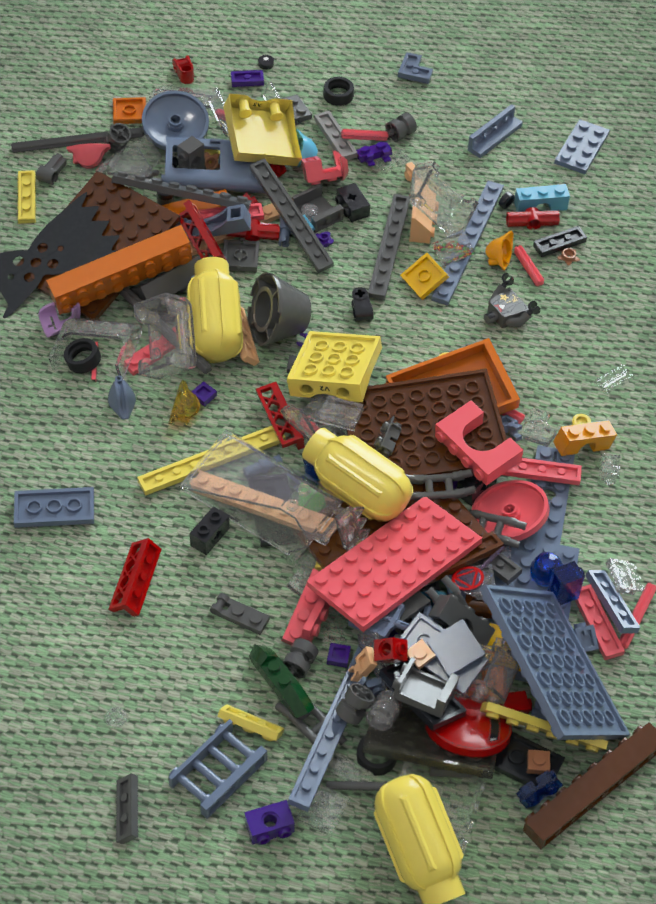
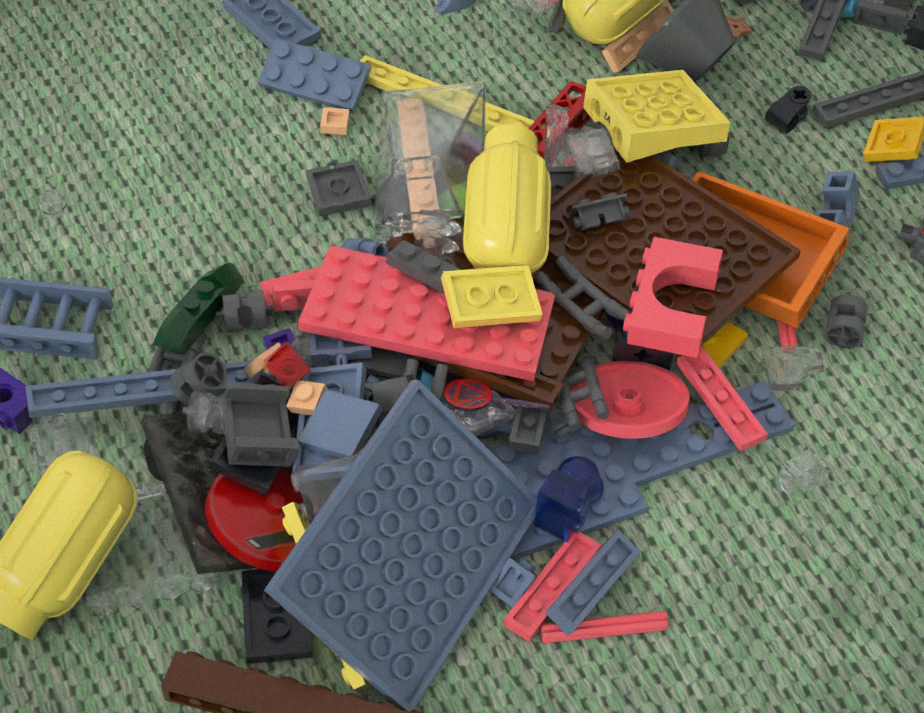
camera: 55 degrees right, 0 degrees up
(130, 513) = (314, 75): none -> sand blue plate
(138, 577) = (240, 125): red fence -> none
(178, 525) = (334, 121): none -> light nougat plate
(185, 405) = (493, 41): clear yellow hat -> none
(204, 393) = (527, 49): dark purple plate -> none
(209, 530) = (348, 145): black brick -> none
(236, 555) = (338, 188): none -> dark grey plate
(240, 614) = (266, 234): dark grey plate -> none
(251, 723) = (127, 315): light yellow plate -> none
(313, 567) = (367, 246): none -> sand blue pin
(325, 238) = (849, 32): dark purple plate -> none
(347, 770) = (130, 443): clear tile -> none
(354, 785) = (110, 450): dark grey bar -> none
(371, 541) = (419, 264): none -> dark grey plate
(420, 523) = (491, 296): none -> light yellow plate
(449, 331) = (840, 198): none -> sand blue arch
(511, 426) = (760, 332): sand blue plate -> none
(530, 385) = (846, 321): none -> dark grey wheel
(538, 761) = (277, 623): nougat plate -> none
(548, 785) = (237, 644): clear blue hinge -> none
(573, 437) = (805, 403): light orange arch -> none
(580, 419) = (849, 410): light yellow tile -> none
(623, 577) = (648, 576): clear plate -> none

